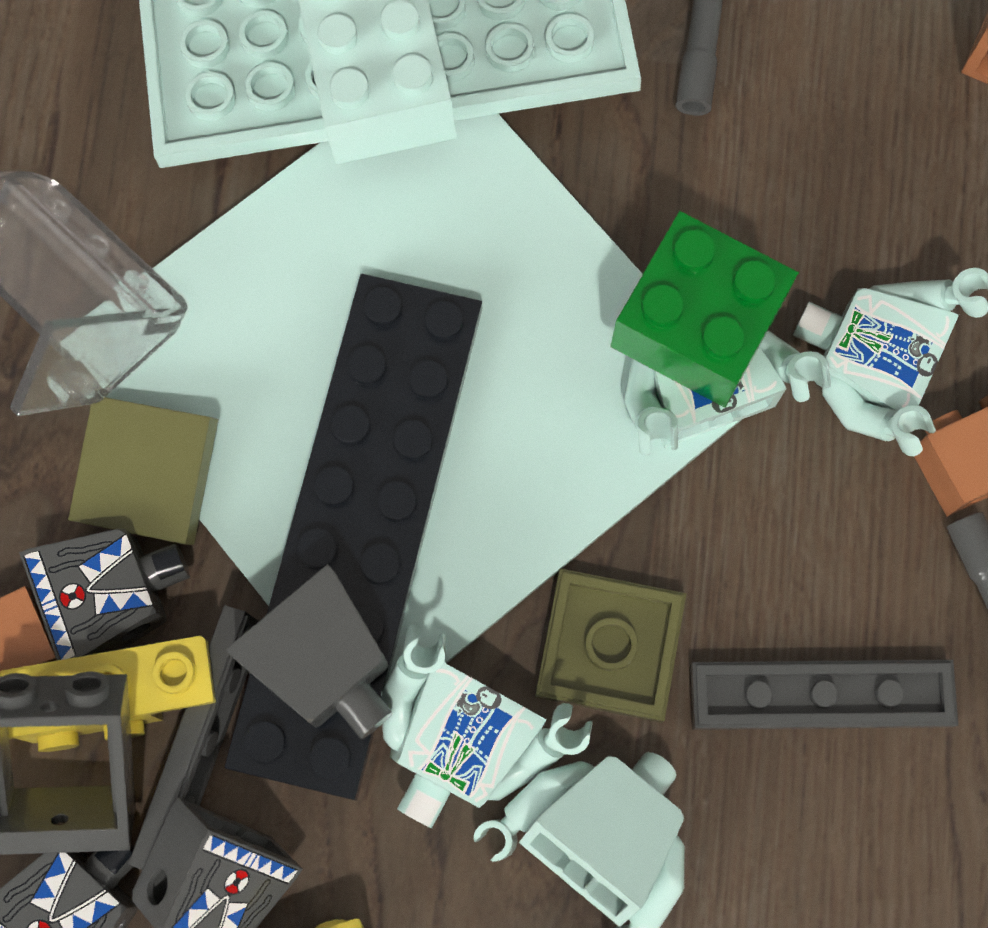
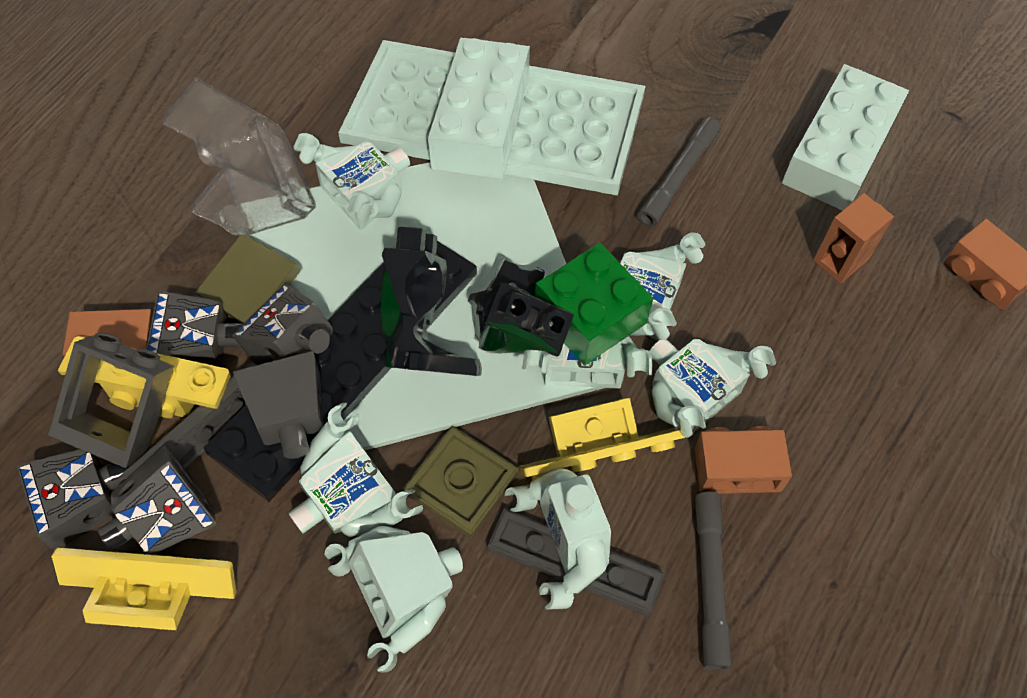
camera: 20 degrees right, 15 degrees down
(229, 227) = (357, 177): none -> light aqua torso
(255, 536) = (284, 328): none -> dark grey torso
(427, 418) = (410, 292): none -> black hips
(591, 387) = (513, 318): none -> black hips
(758, 207) = (661, 276): none -> light aqua torso
(775, 501) = (595, 434): none -> light yellow bracket
(813, 652) = (576, 528): none -> light aqua torso

